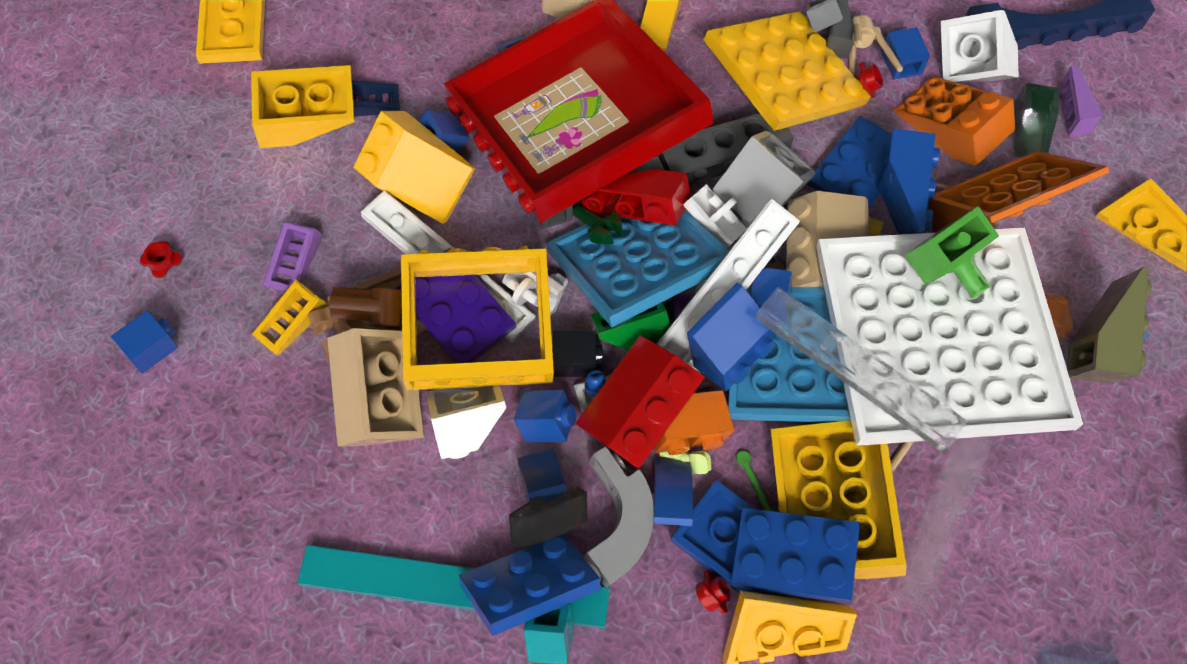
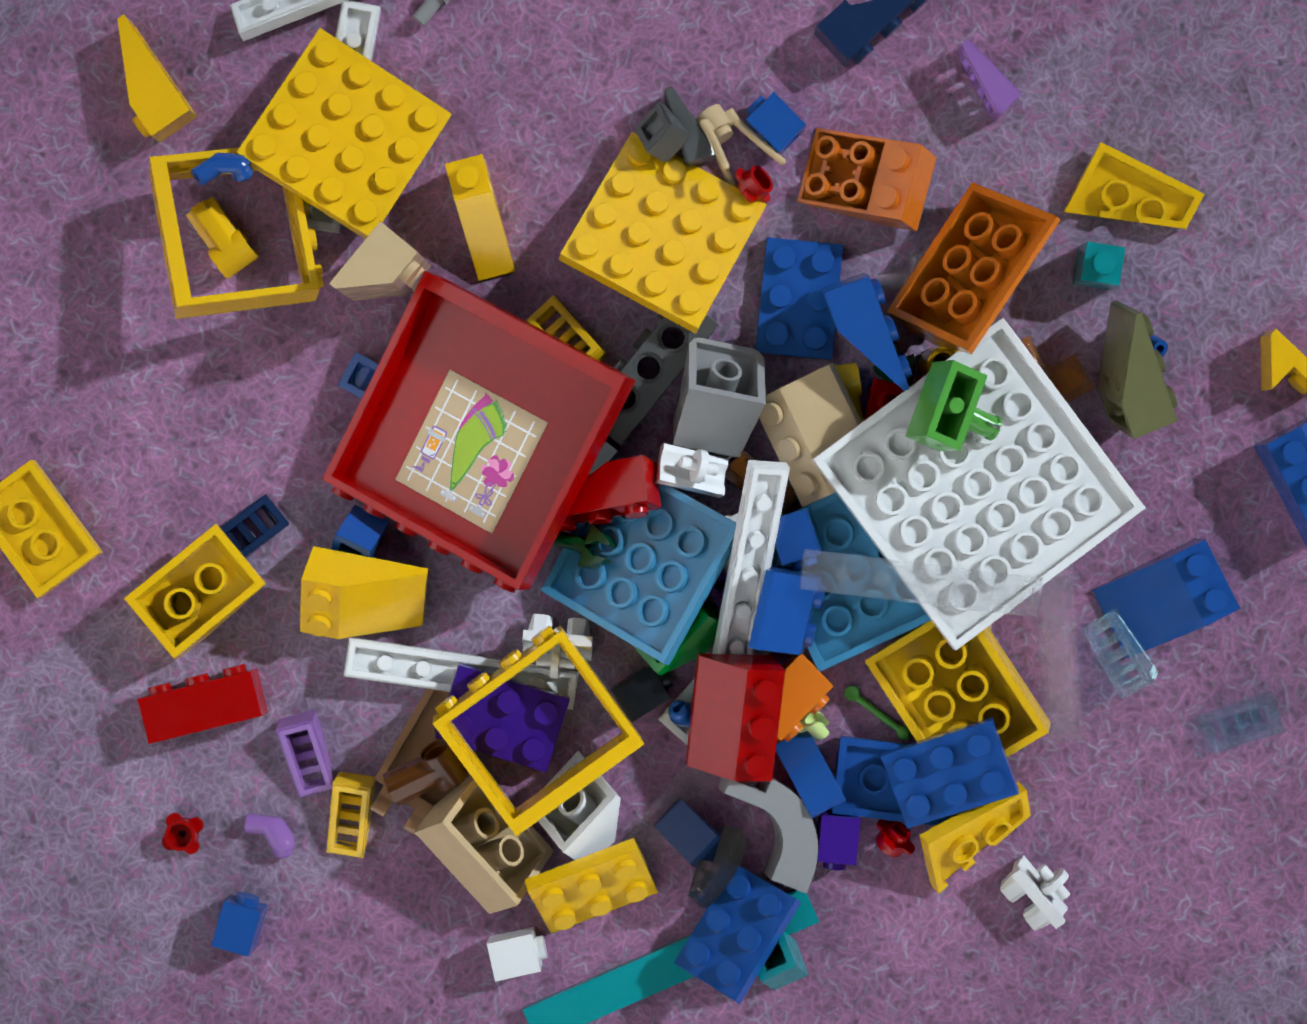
camera: 30 degrees left, 25 degrees up
(226, 295) = (275, 831): none -> medium lavender arm
(247, 180) = (202, 703): none -> red brick
(335, 493) = (516, 953): none -> white brick
(434, 471) = (591, 886): none -> yellow plate
(545, 416) = (655, 773): blue brick -> none
(663, 562) = (837, 840): none -> dark purple brick
(979, 48) = (855, 85): white slope -> none
(1001, 584) = (1131, 647): none -> clear light blue slope
(1035, 119) = (952, 136): clear green slope -> none
(1062, 531) = (1169, 595): none -> blue slope
(1112, 256) = (1098, 265): none -> teal brick

